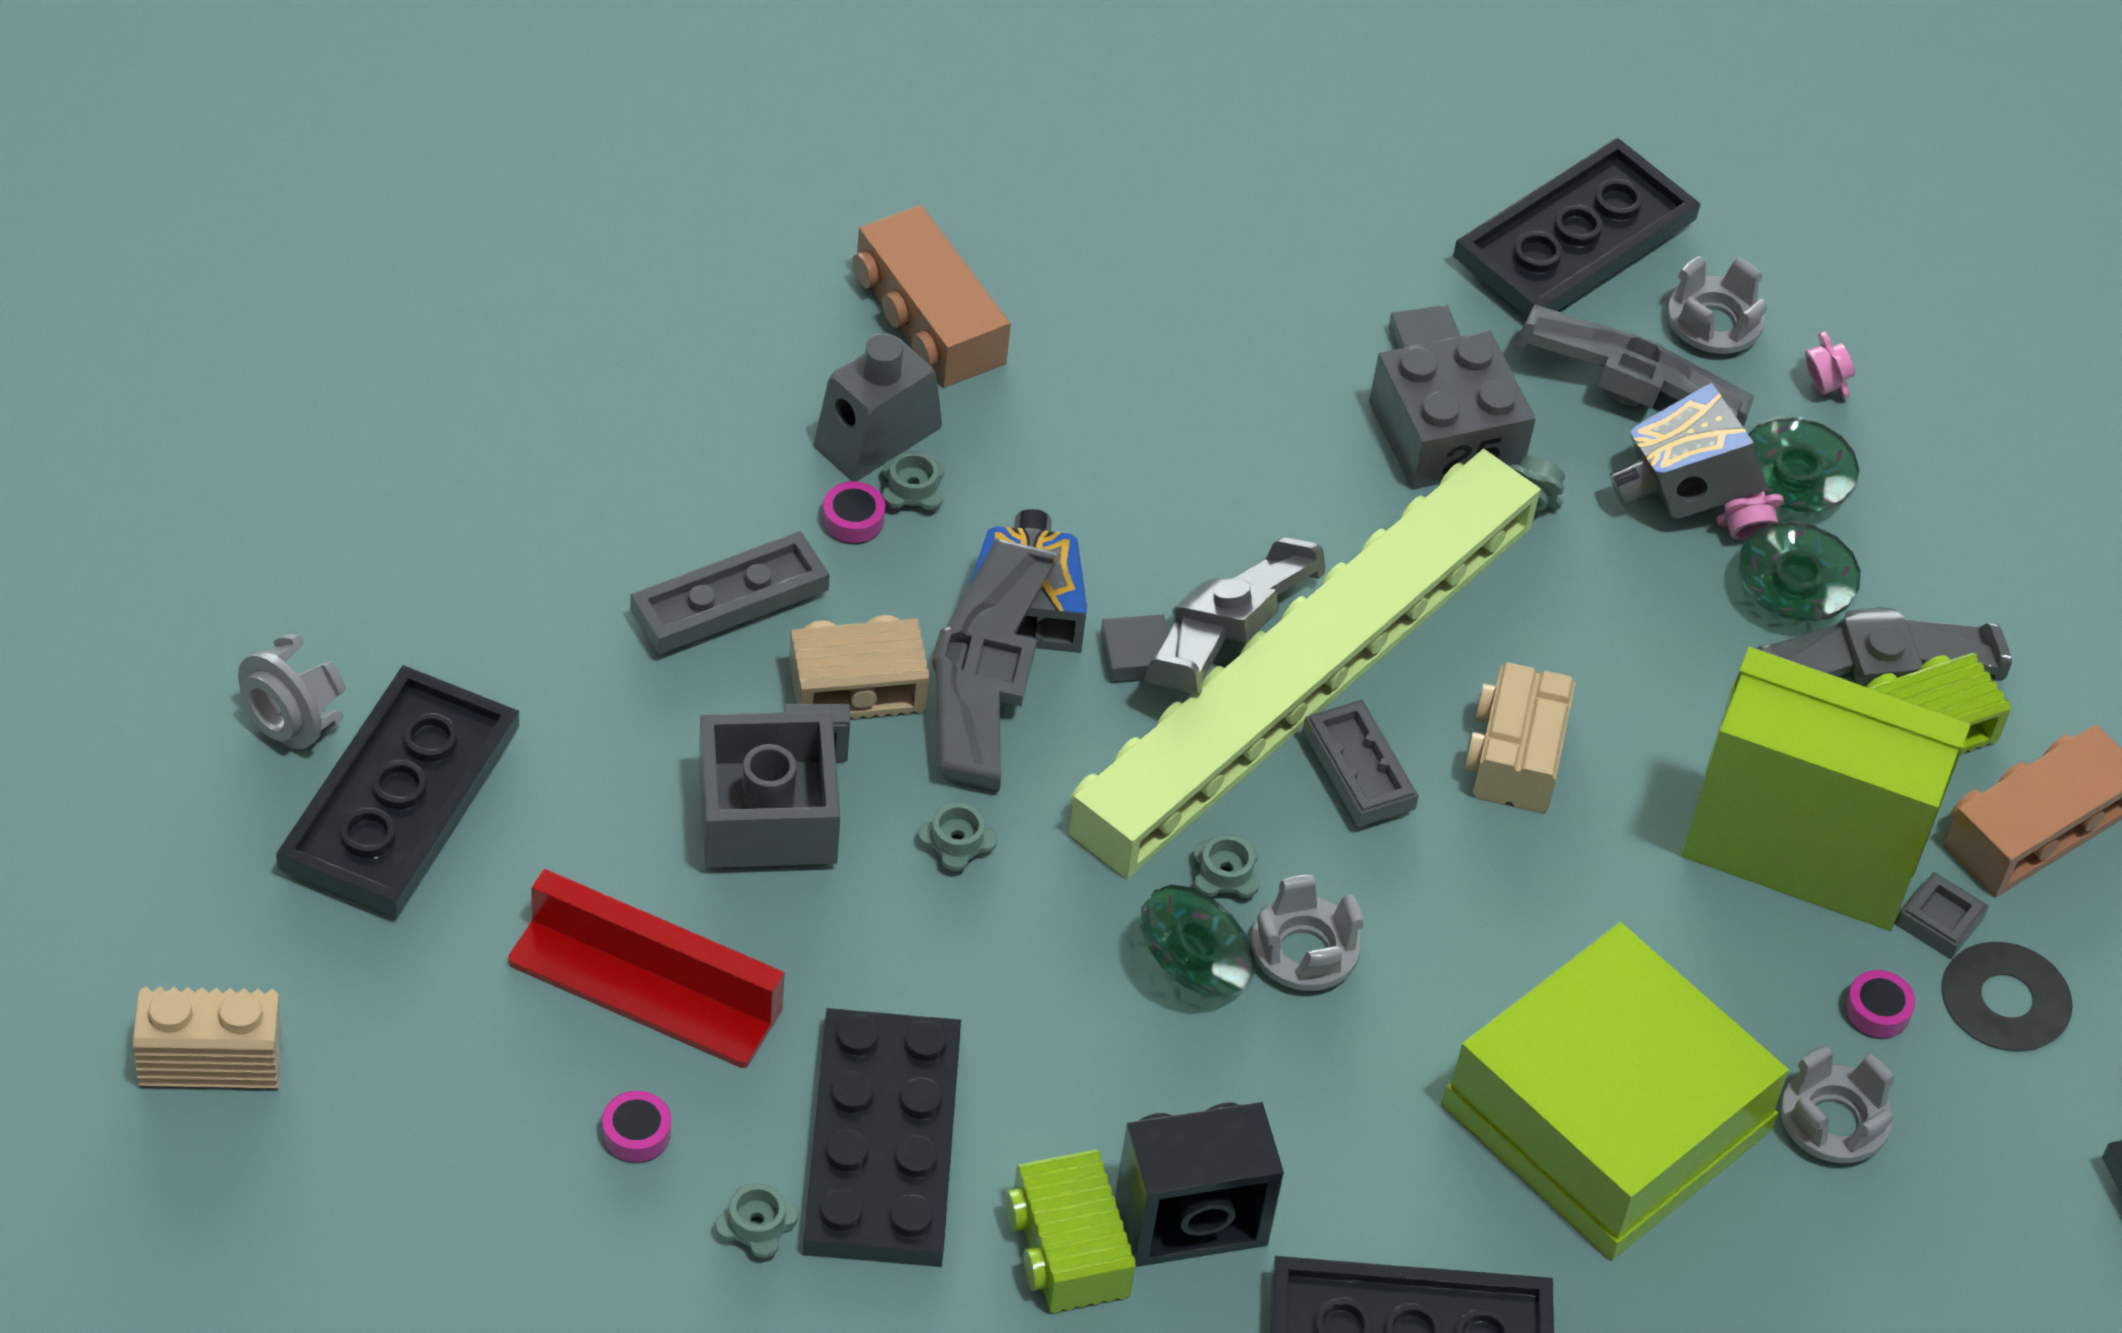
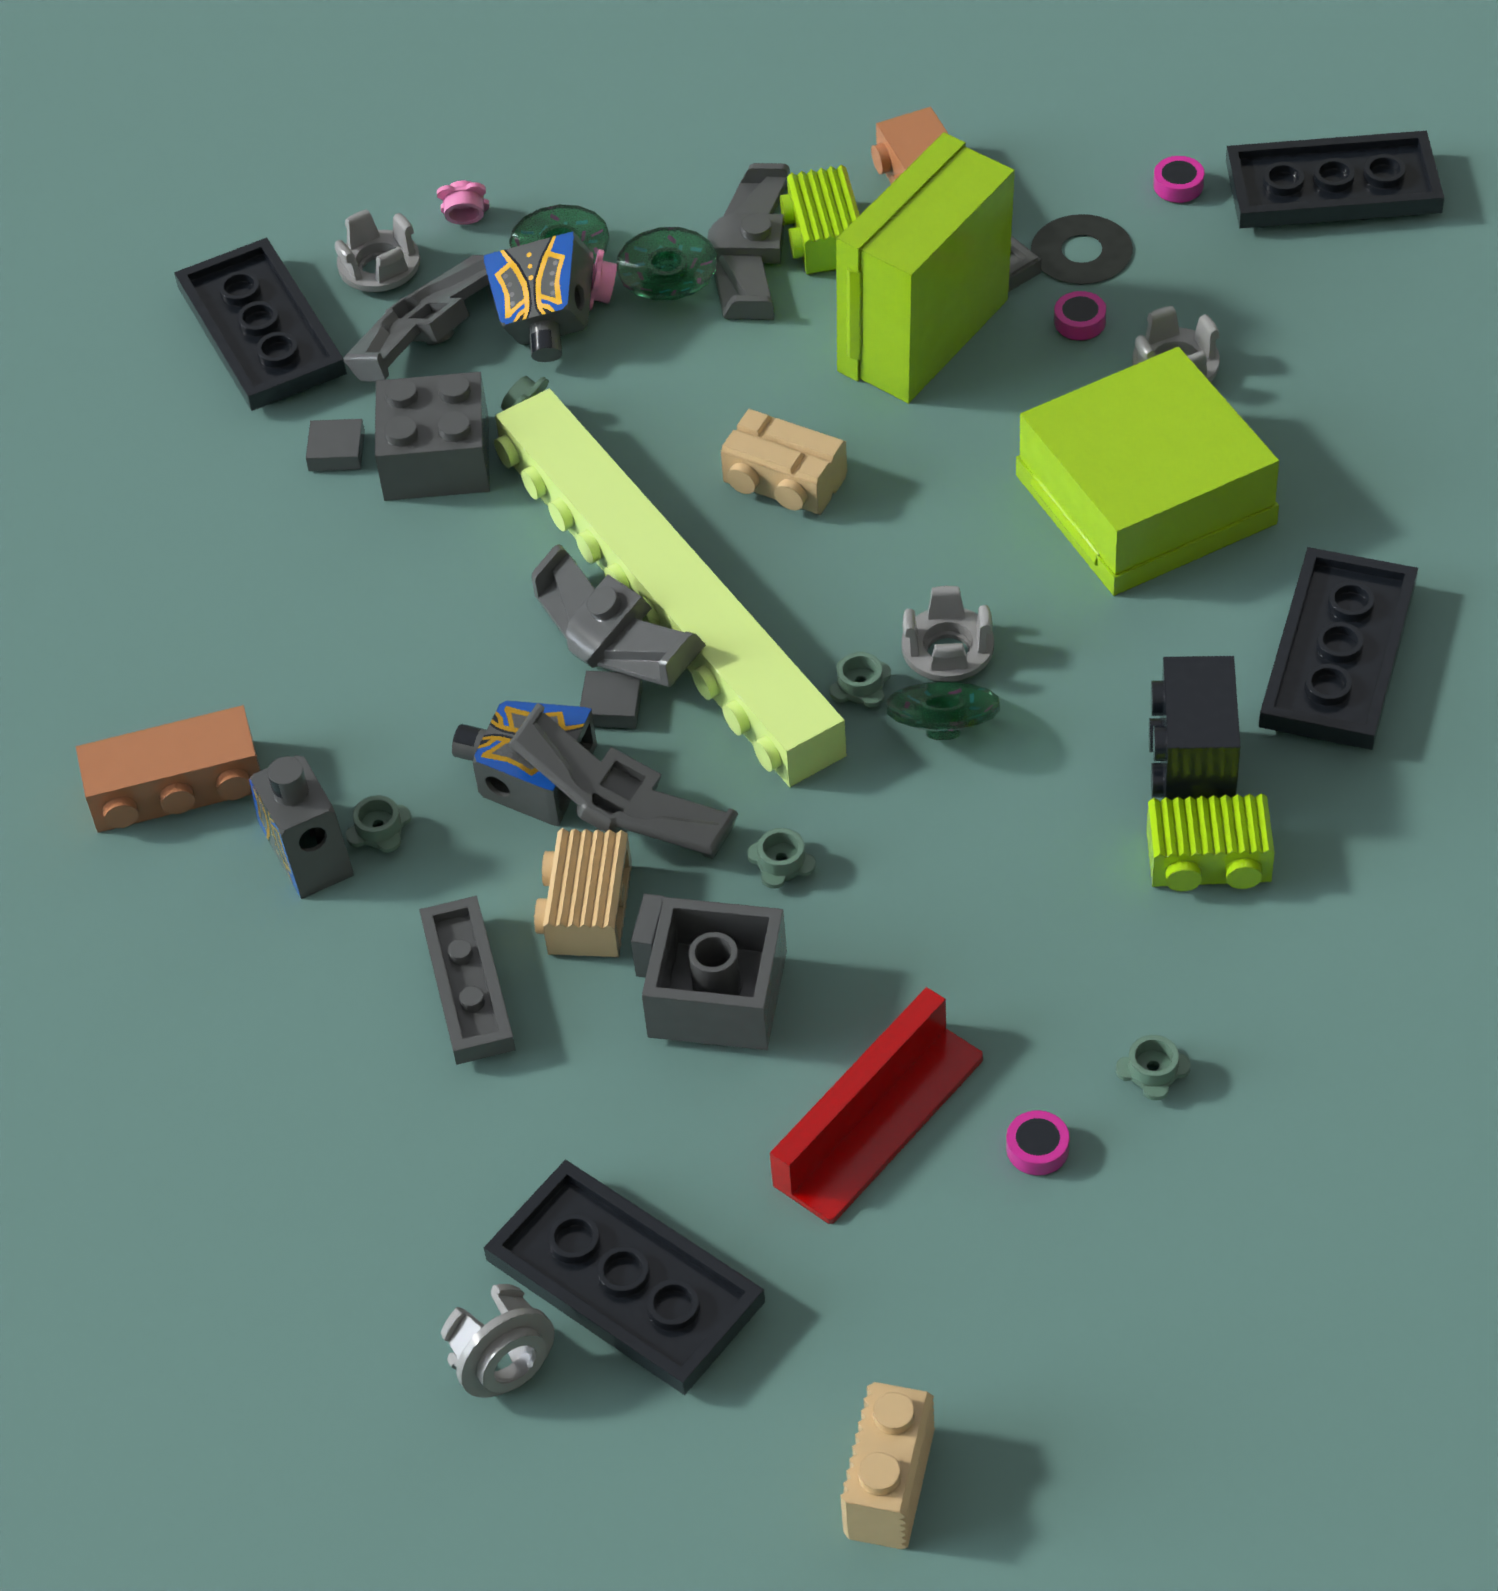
camera: 65 degrees left, 0 degrees up
(853, 512) = (396, 875): dark pink tile -> none
(883, 1138) = (1081, 964): black plate -> none
(1360, 763) = (779, 571): dark grey plate -> none

